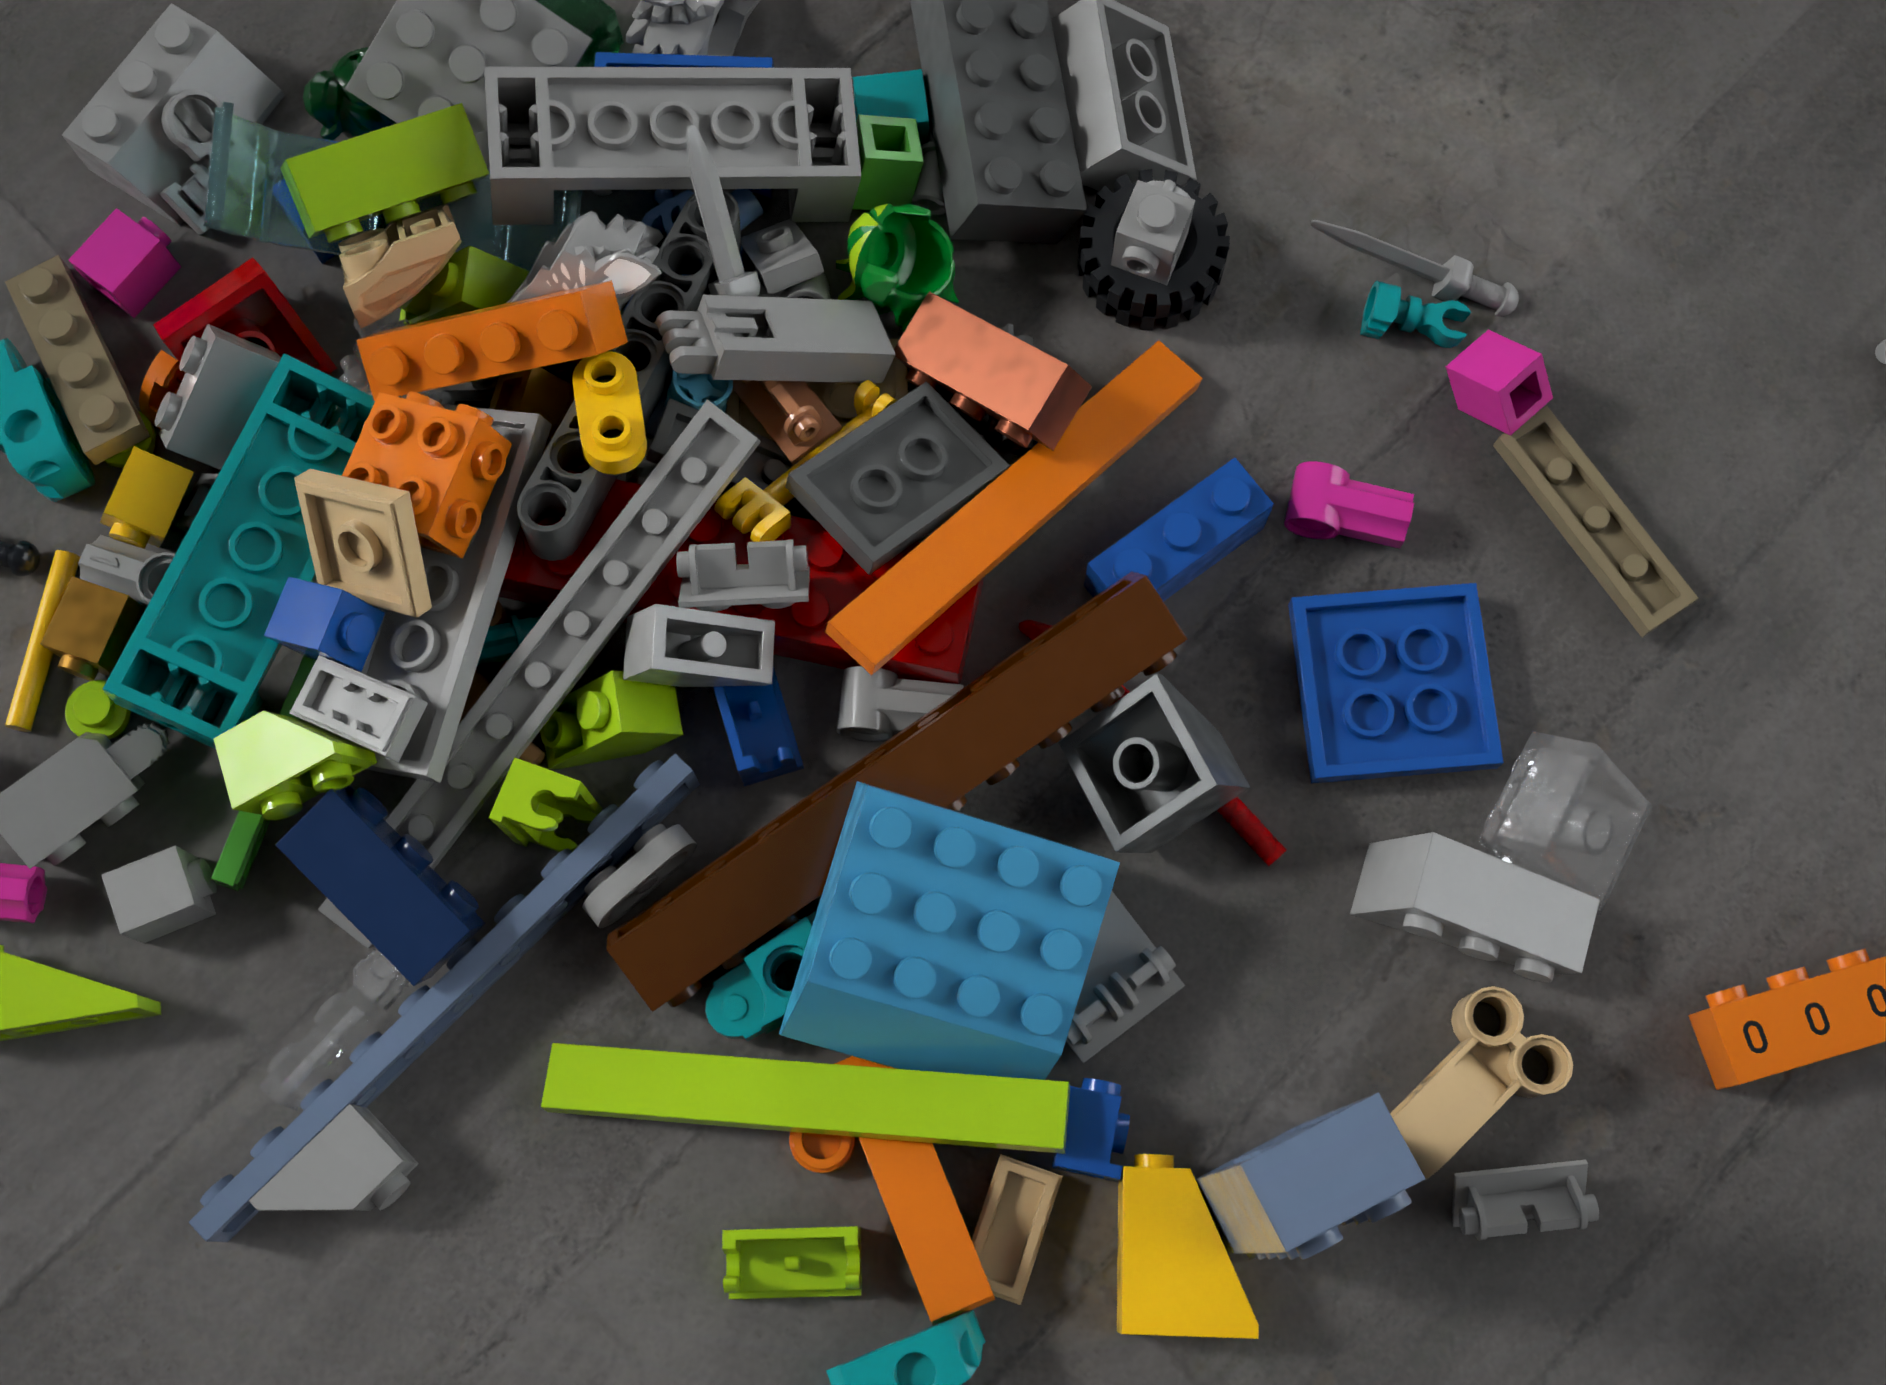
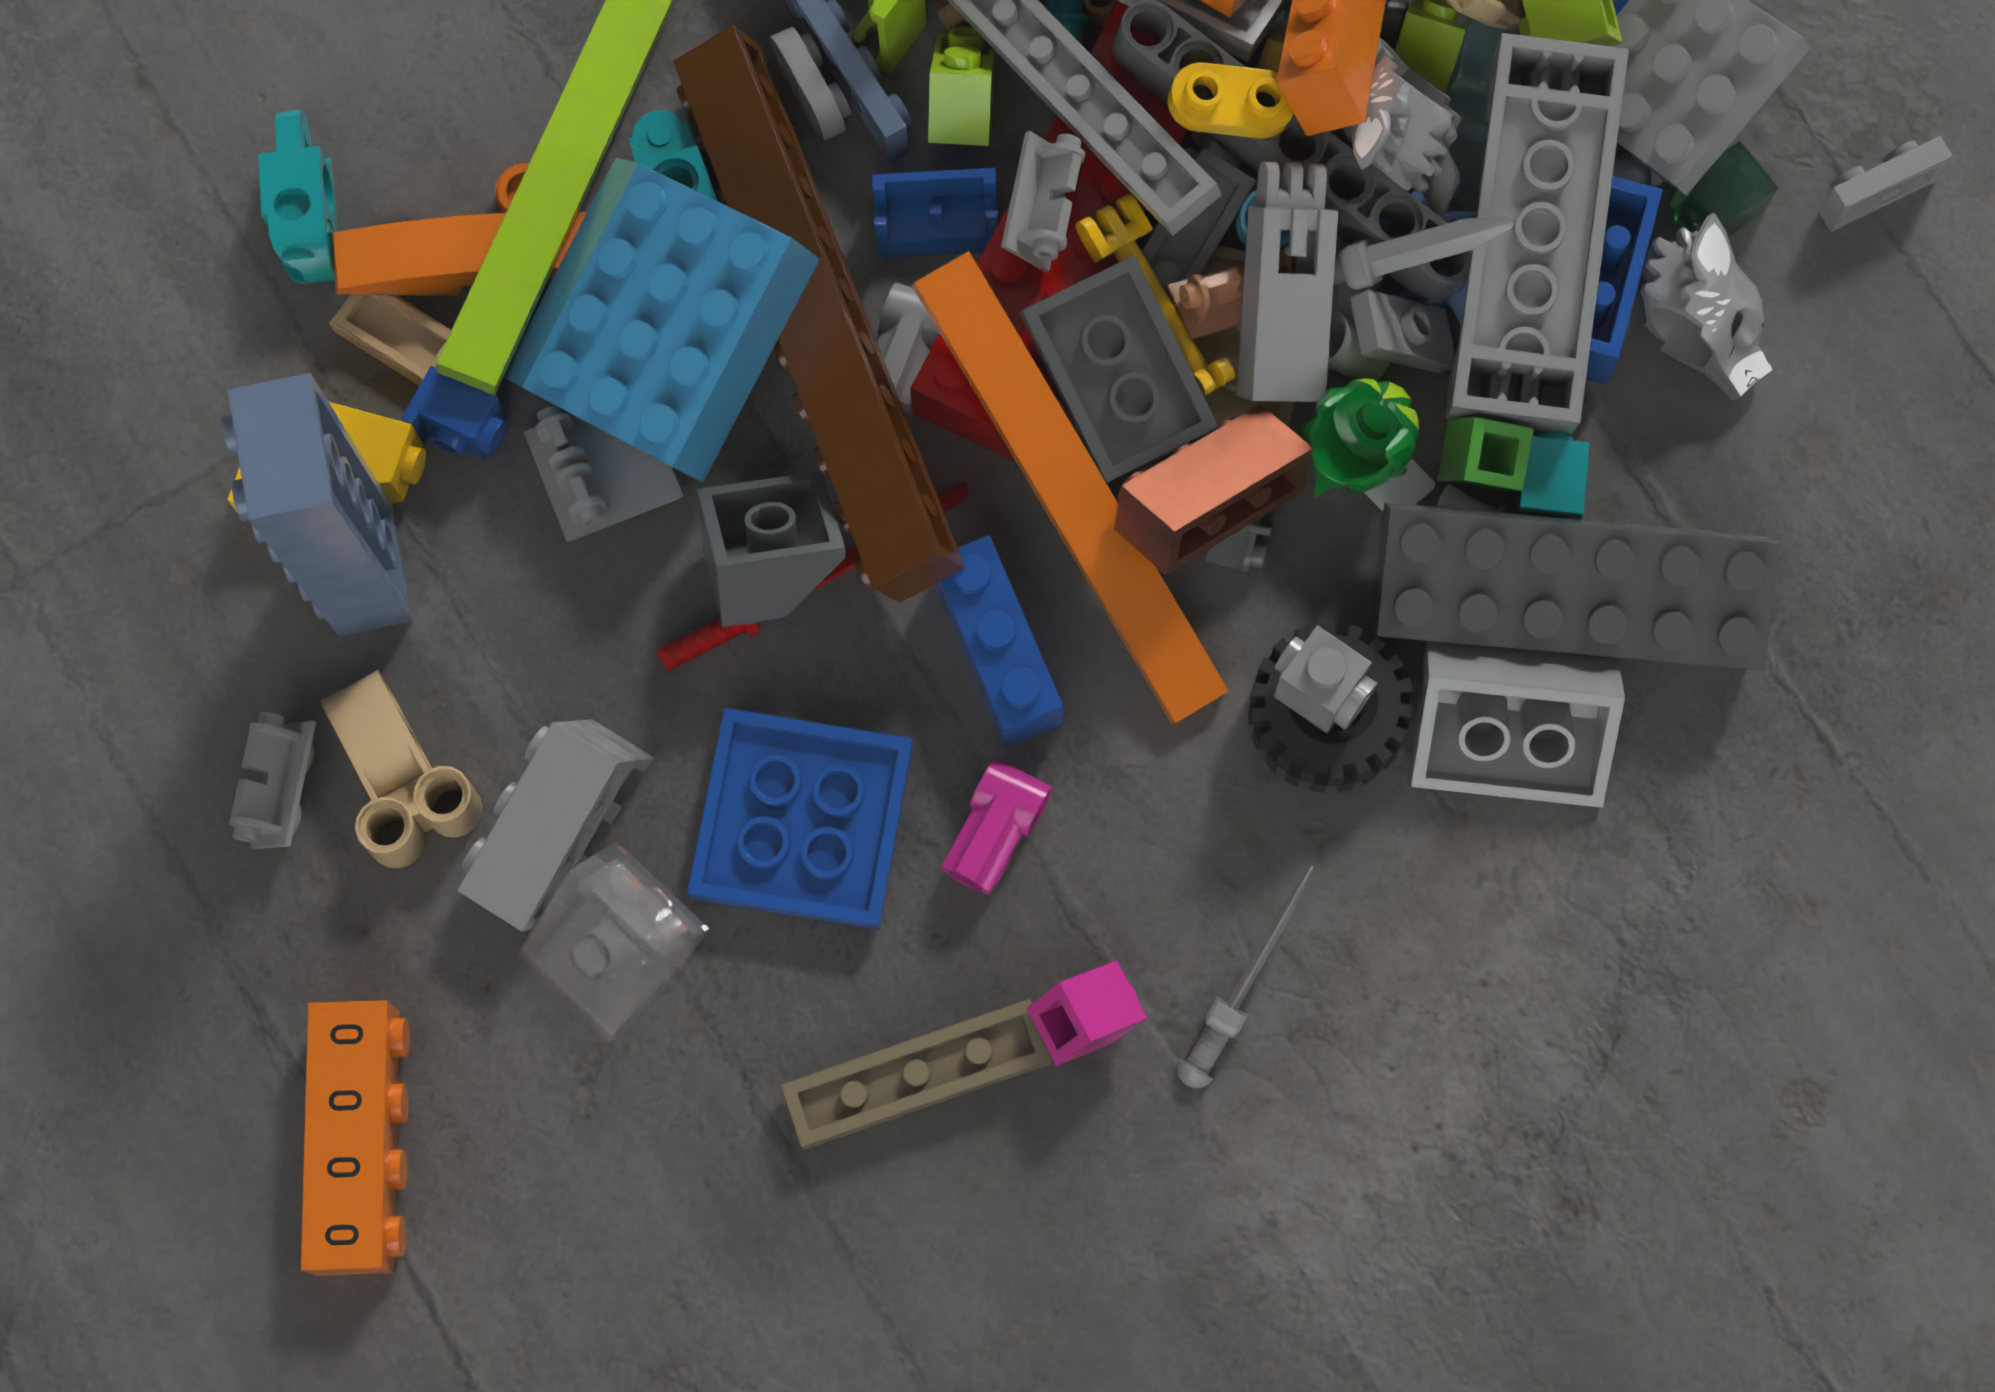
camera: 105 degrees right, 0 degrees up
(698, 648) = (987, 152): light grey slope -> none
(792, 1262) = (429, 144): lime hinge -> none
(1386, 306) = (1208, 934): teal piece -> none

